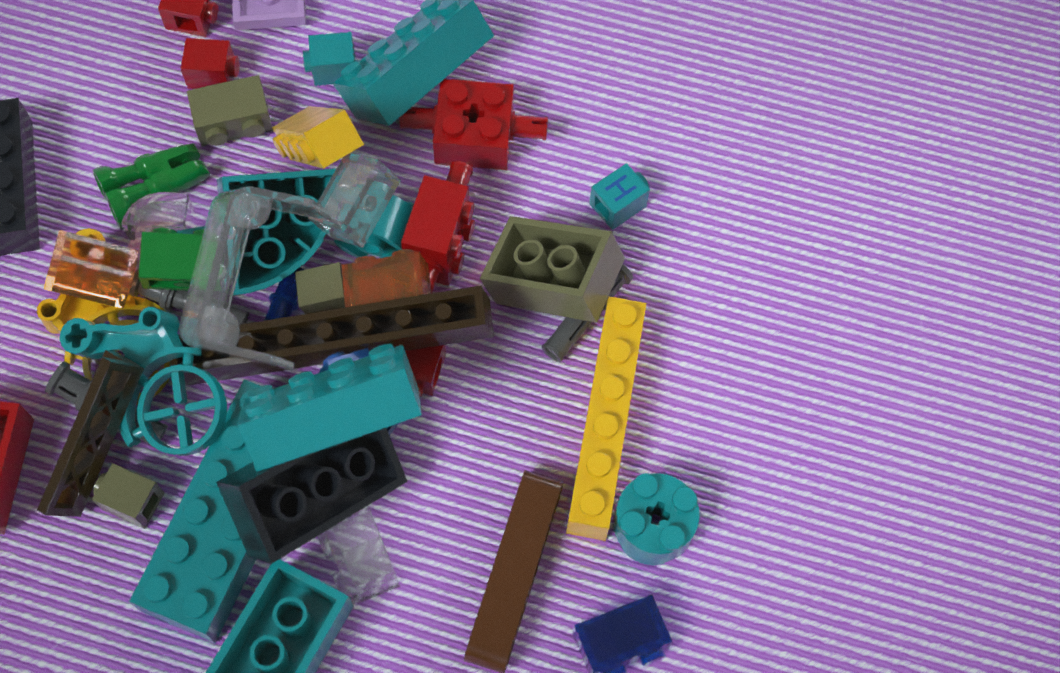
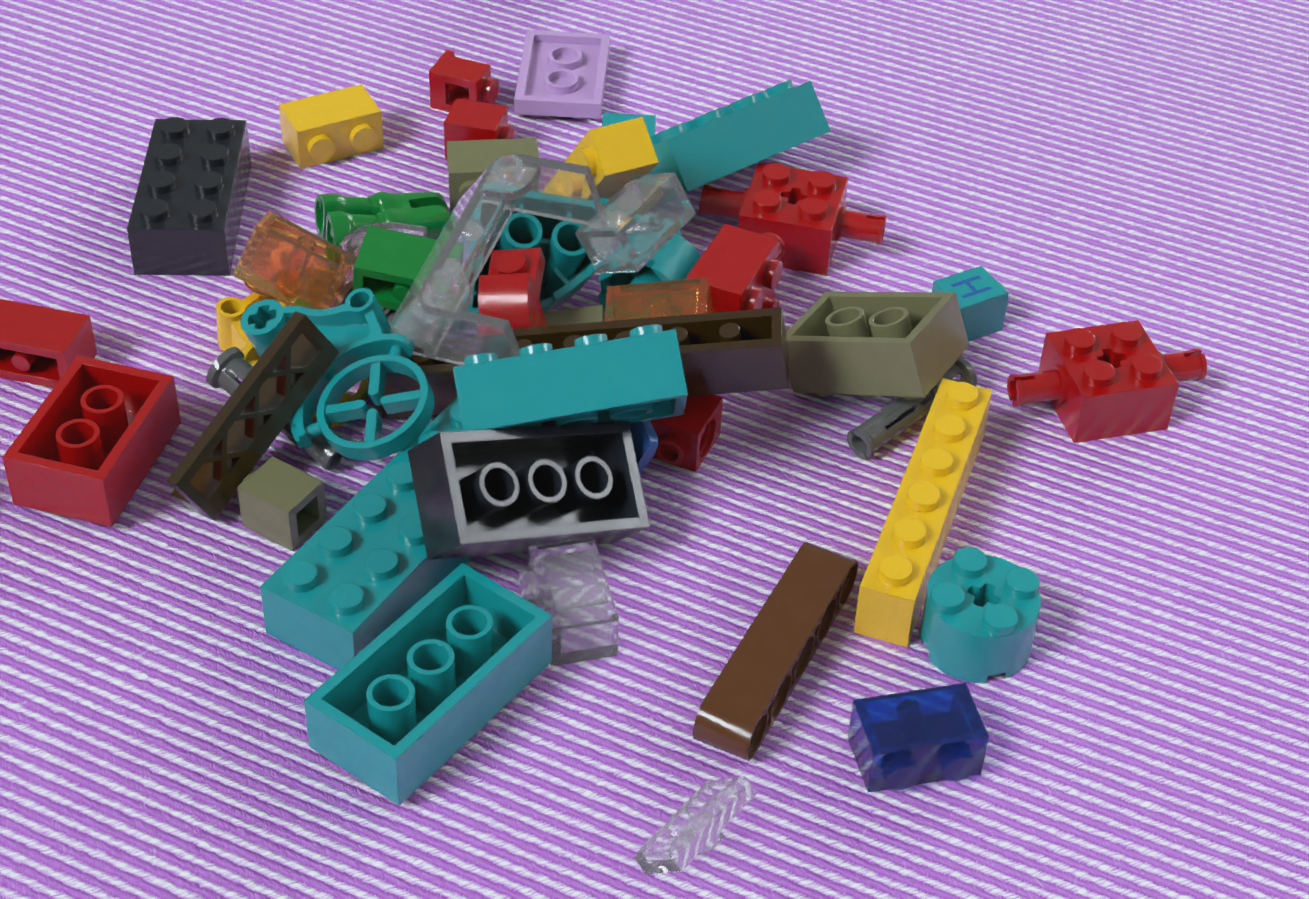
camera: 10 degrees right, 25 degrees down
(89, 76) = (331, 126): none -> yellow brick
(267, 283) = (513, 287): none -> red brick
(730, 262) = (1107, 380): none -> red brick

